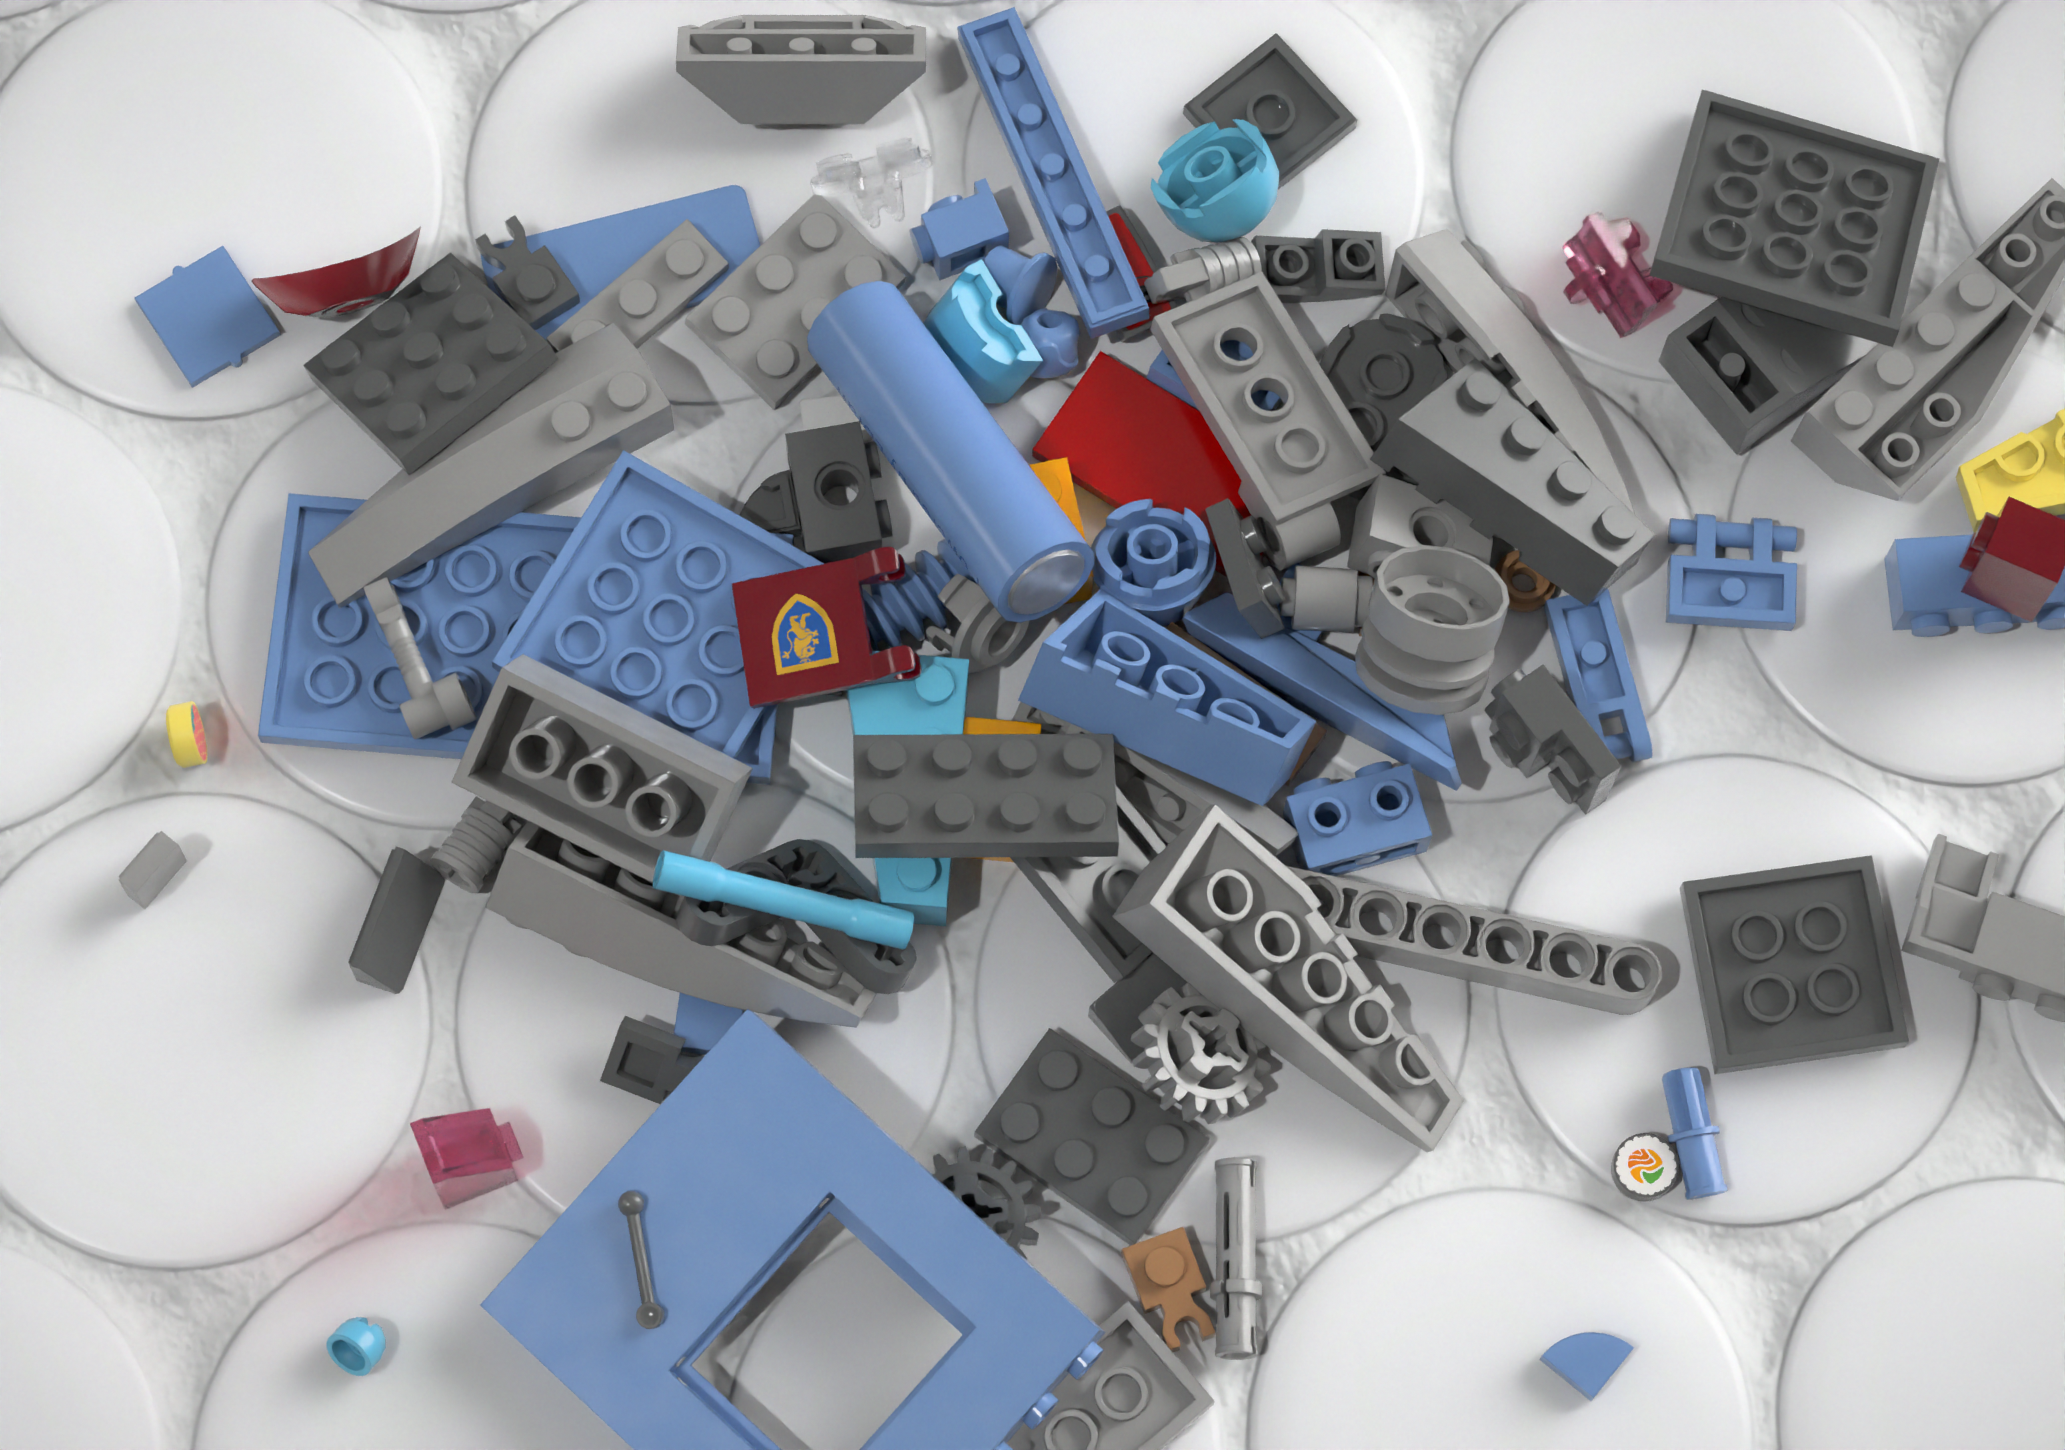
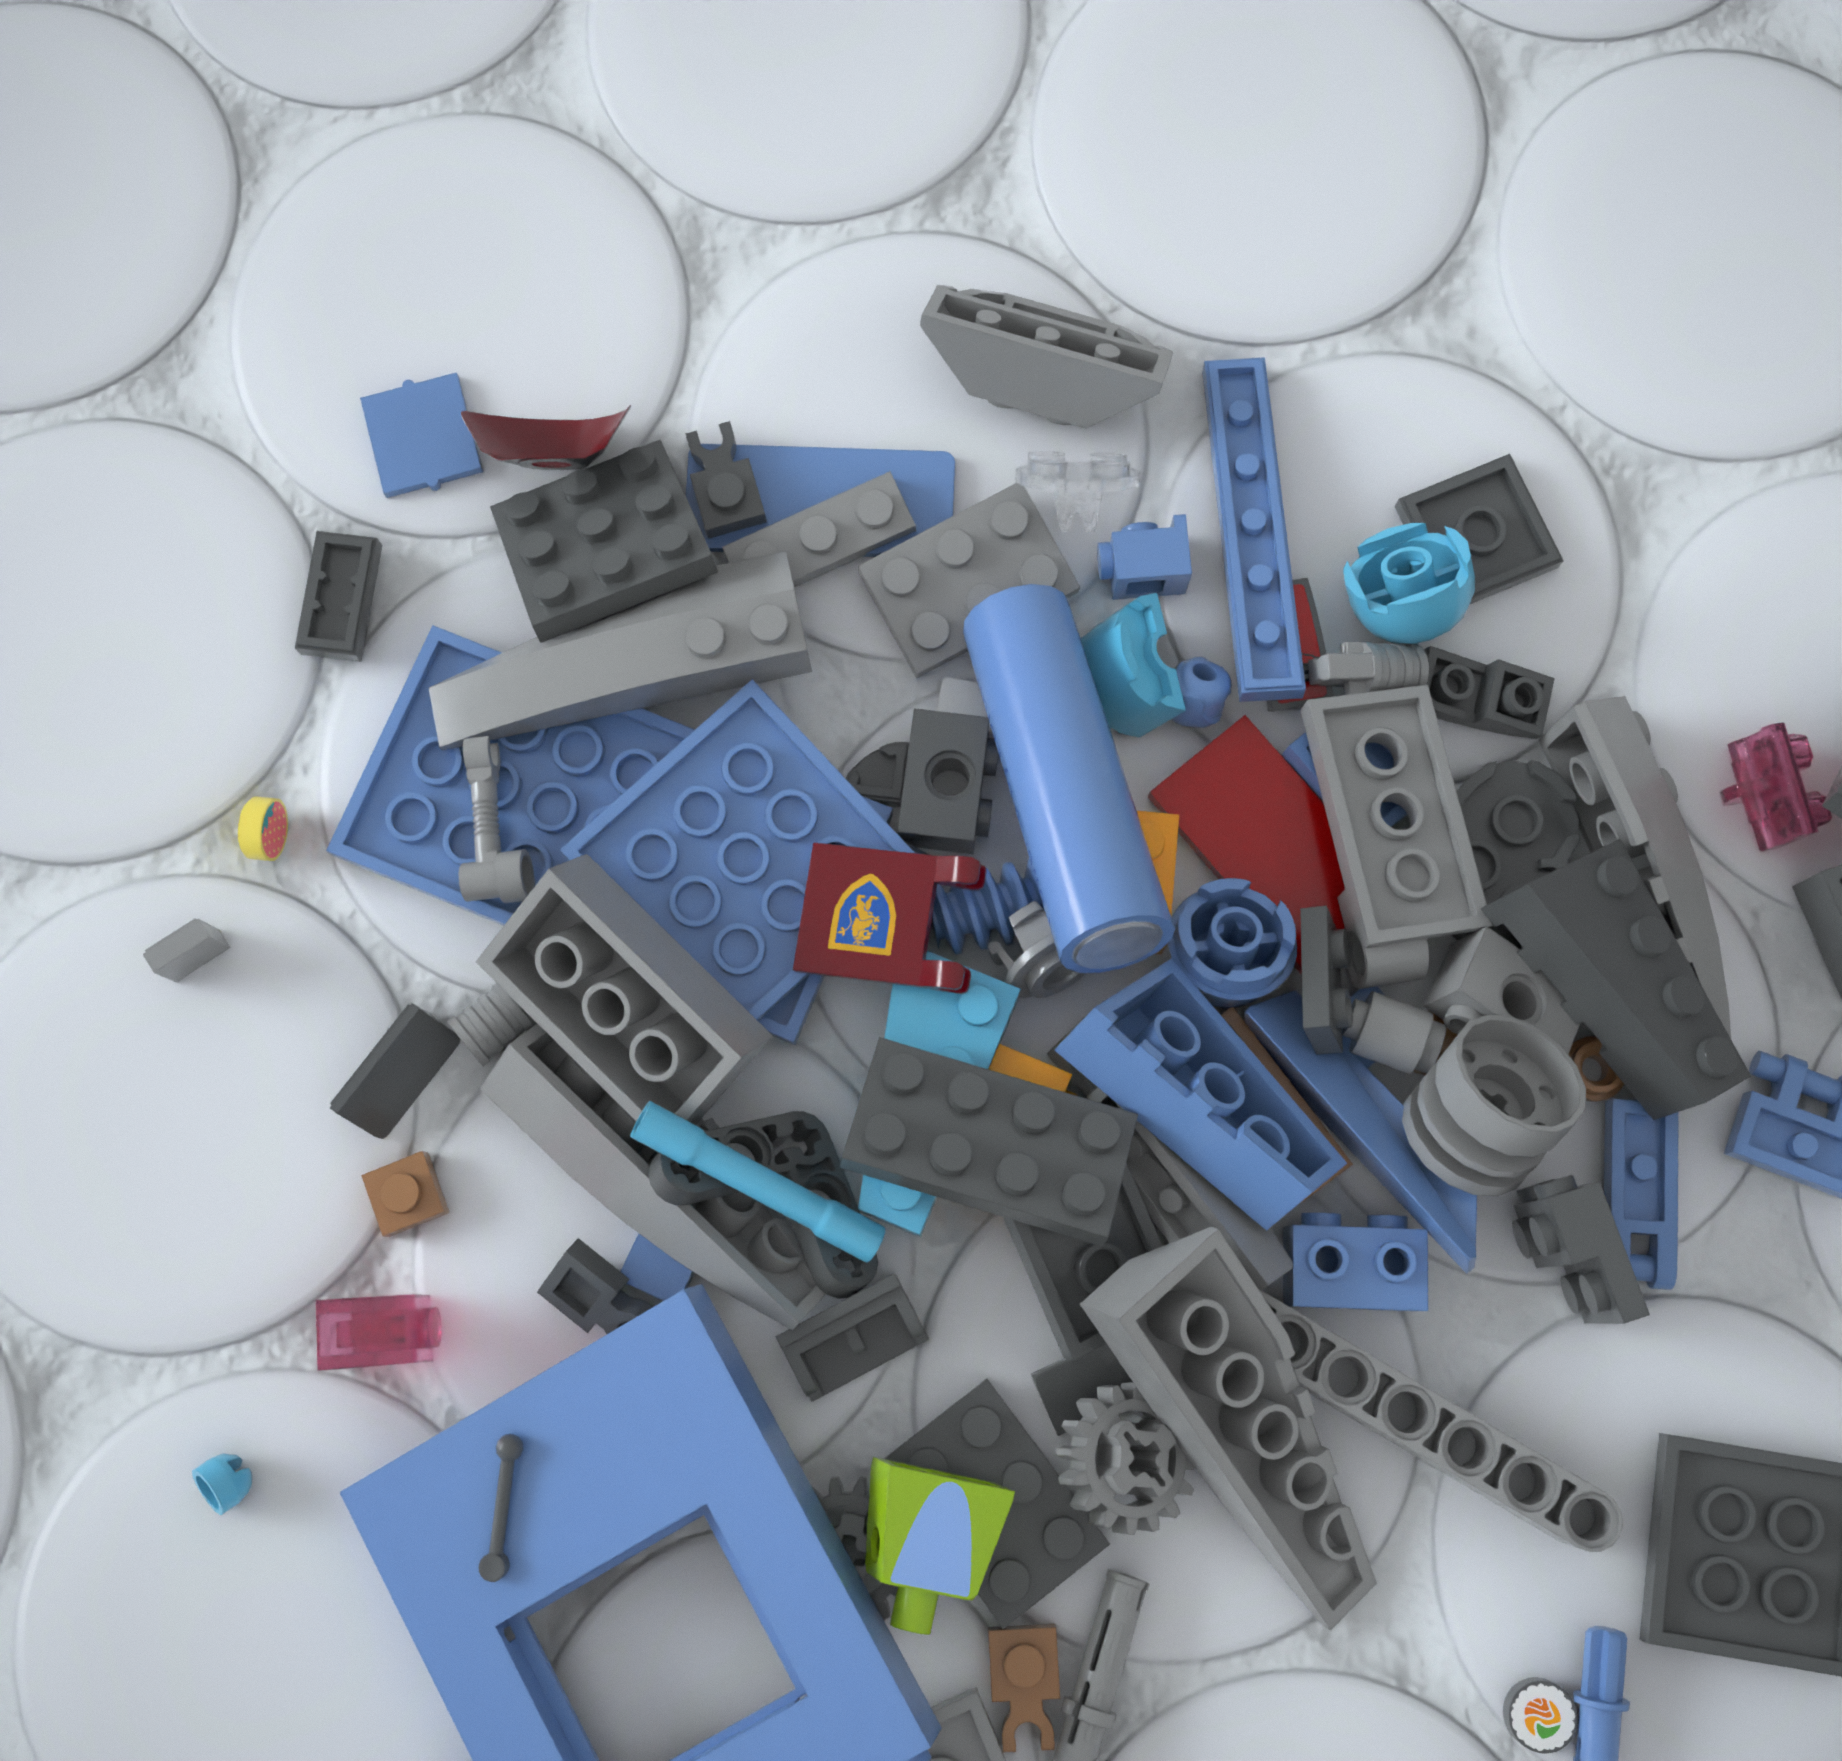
camera: 25 degrees right, 5 degrees up
(182, 494) = (338, 596): none -> dark grey plate
(441, 1033) = (405, 1194): none -> medium nougat plate
(912, 1028) = (852, 1337): none -> dark grey hinge
(1022, 280) = (1189, 624): medium blue piece -> none
(1040, 1162) = (930, 1536): none -> lime torso

